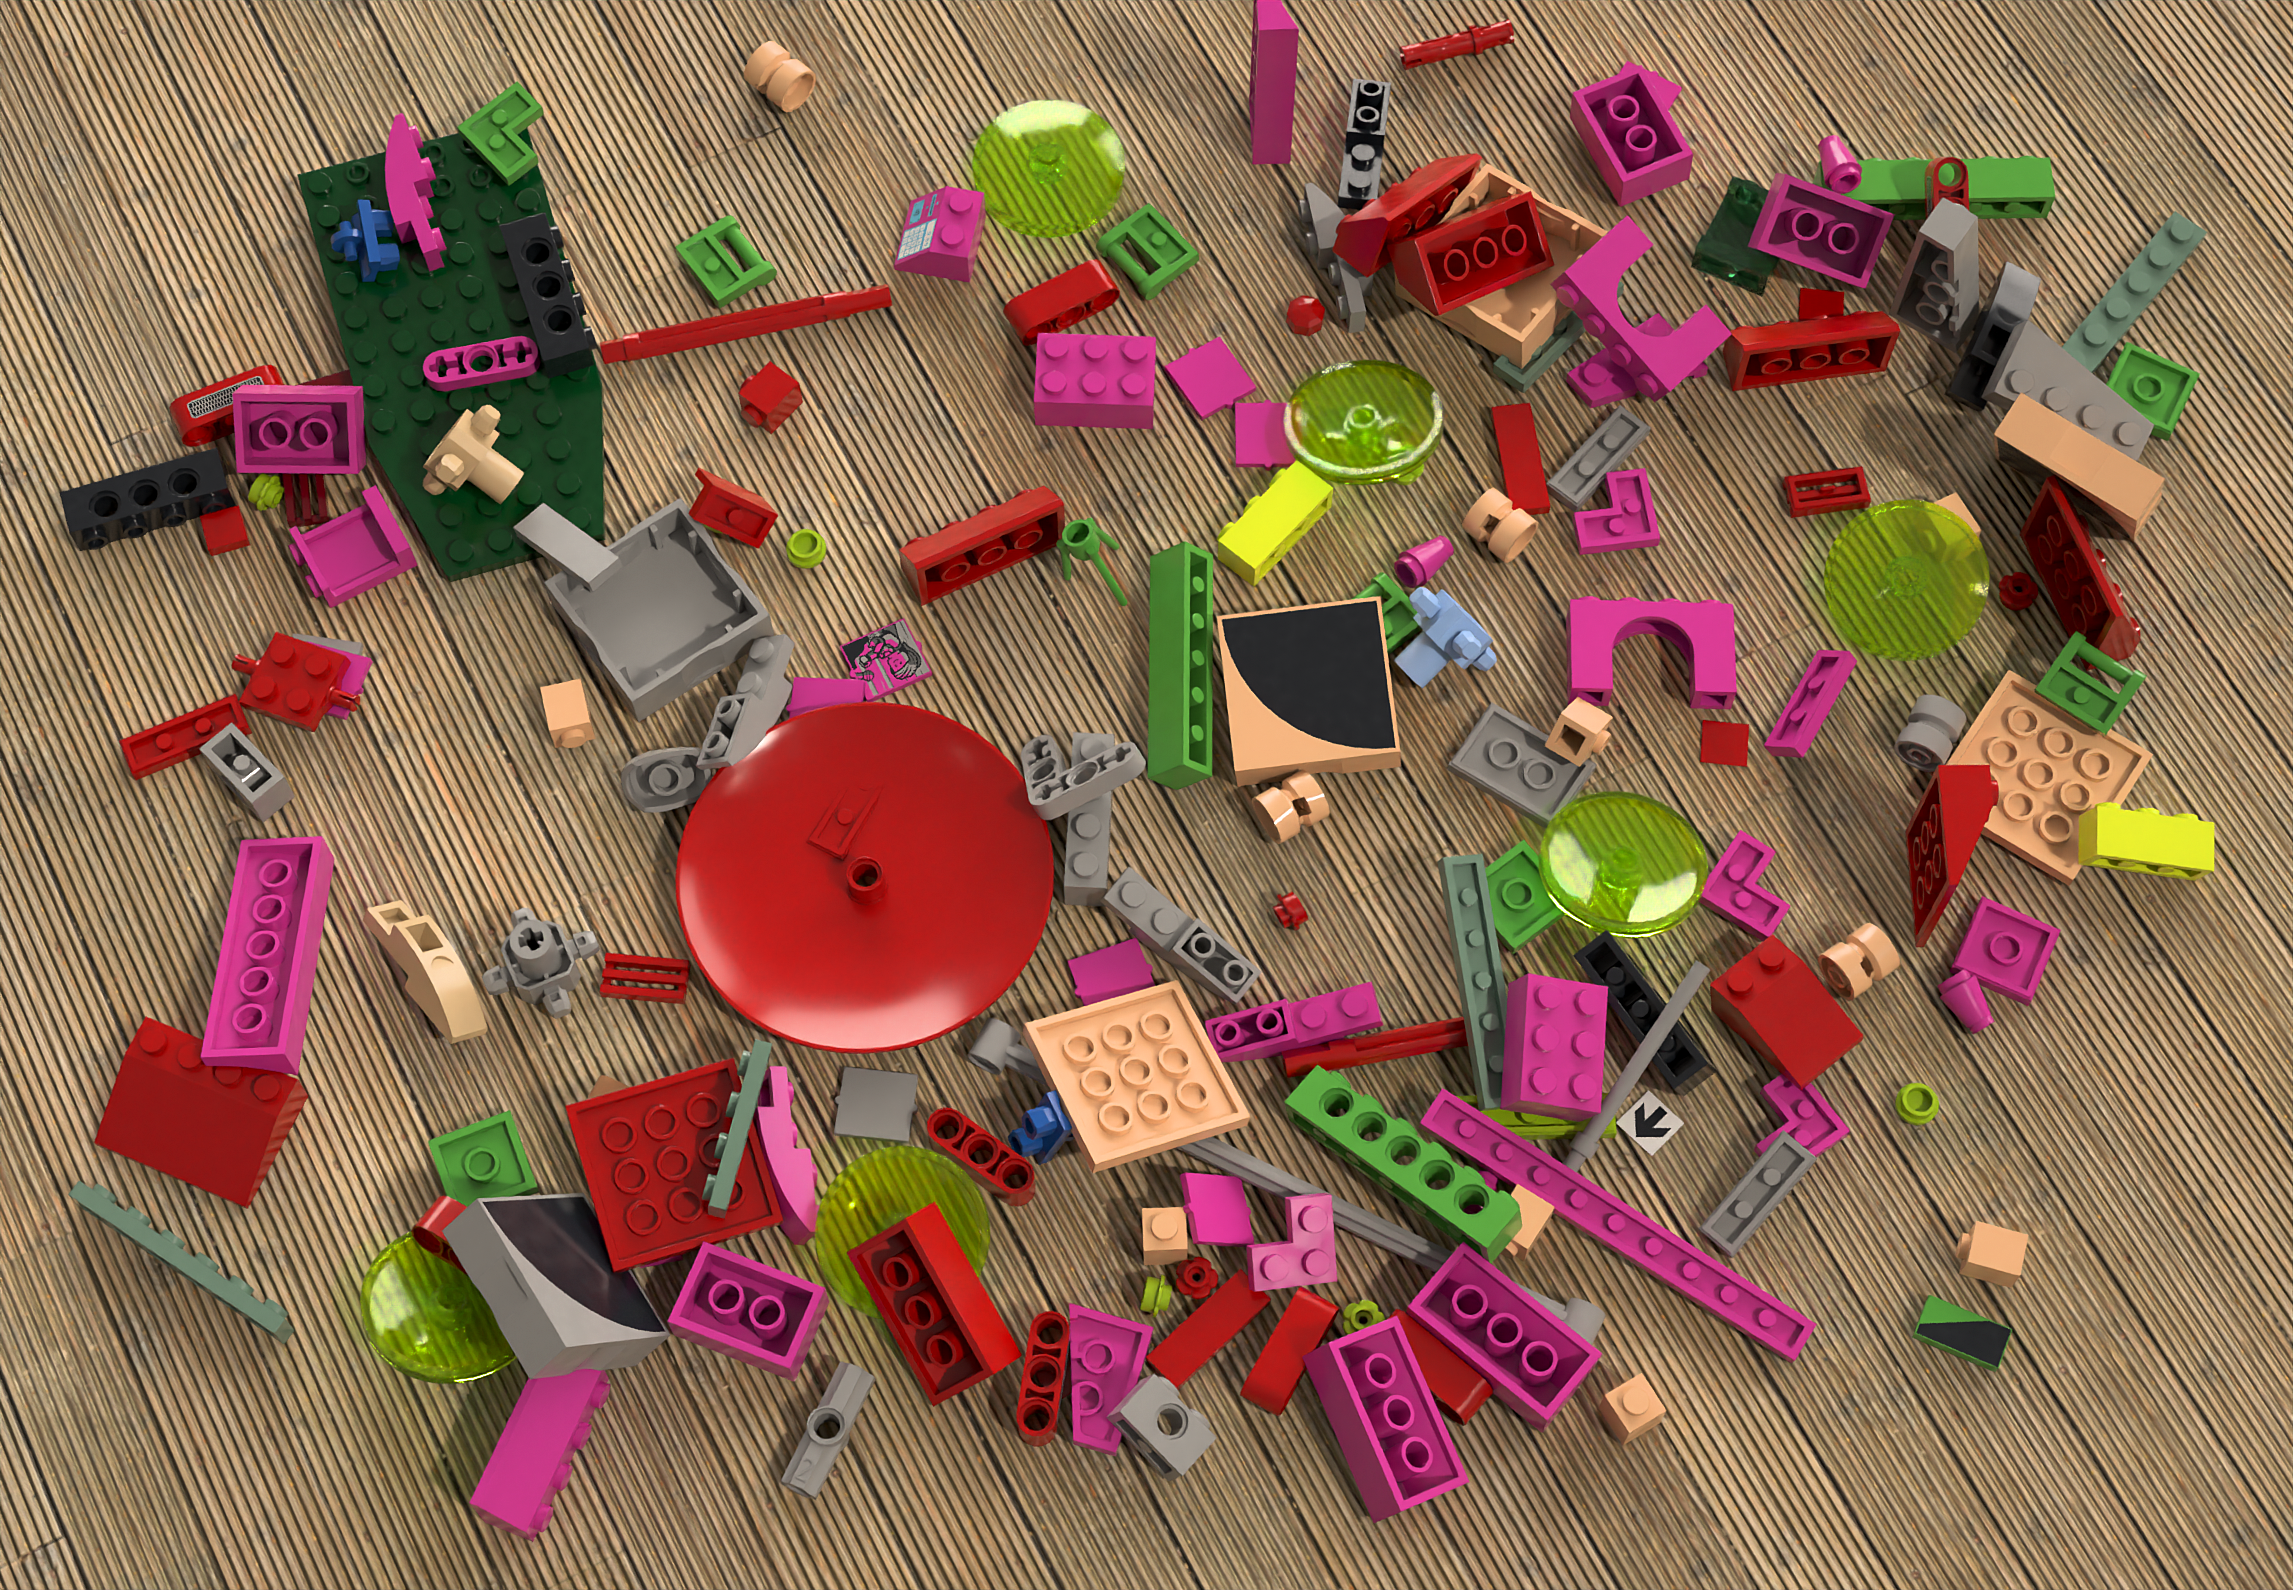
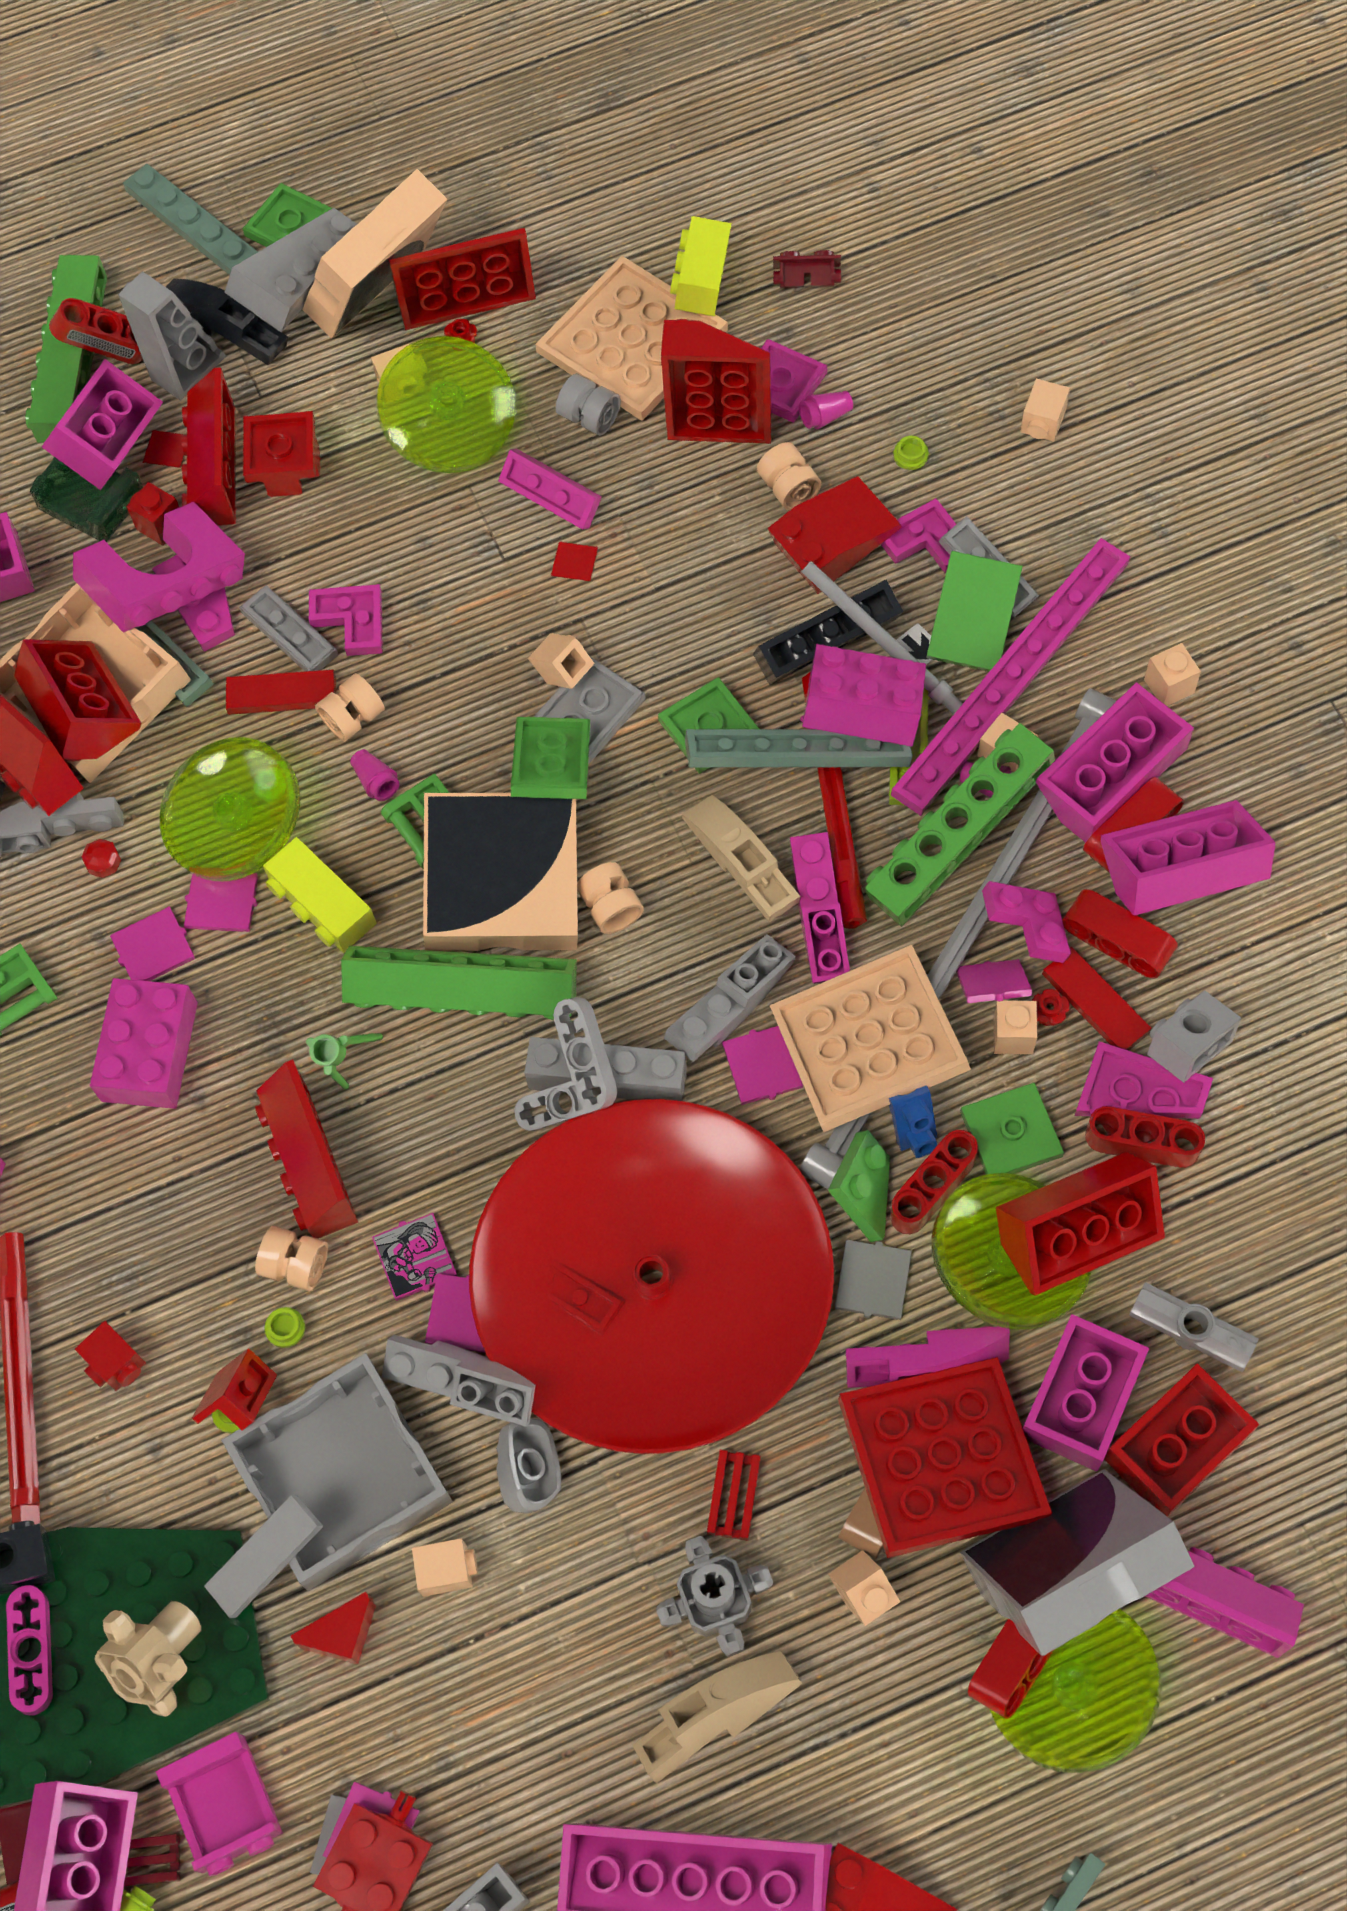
camera: 80 degrees left, 0 degrees up
(484, 1161) = (924, 1655): bright green plate -> none
(504, 632) = (340, 1632): none -> red slope
(542, 1098) = (864, 1587): none -> light nougat brick
(698, 1411) = (1181, 1440): none -> red brick
(731, 1145) = (932, 1389): sand green plate -> none
(872, 543) = (291, 1258): none -> light nougat wheel
(974, 1082) = (863, 1185): none -> bright green wing
(1047, 1241) = (1012, 1131): none -> bright green plate
(1061, 301) = (49, 1072): red beam -> none
(1155, 1295) = (1066, 1041): lime plate -> none
(1290, 911) = (708, 908): red plate -> none
(1350, 934) = (742, 855): none -> tan slope
(1354, 1312) = (1082, 881): lime plate -> none
(1445, 636) = (458, 752): light blue piece -> none
(1446, 725) = (550, 758): none -> bright green tile
(1623, 864) = (690, 637): clear neon green dish -> none
(1694, 1177) = (974, 611): none -> bright green tile
(1698, 629) = (473, 562): dark pink arch -> none
(1728, 298) = (148, 511): none -> red brick
(1734, 892) = (713, 563): dark pink plate -> none
(1797, 500) = (347, 484): red tile -> none
(1819, 417) = (280, 451): none -> red panel
(1839, 165) = (40, 402): dark pink cone -> none
(1962, 1333) = (1103, 444): tile -> none
(2082, 694) = (567, 292): bright green plate -> none
(2175, 986) = (818, 266): none -> dark red hinge

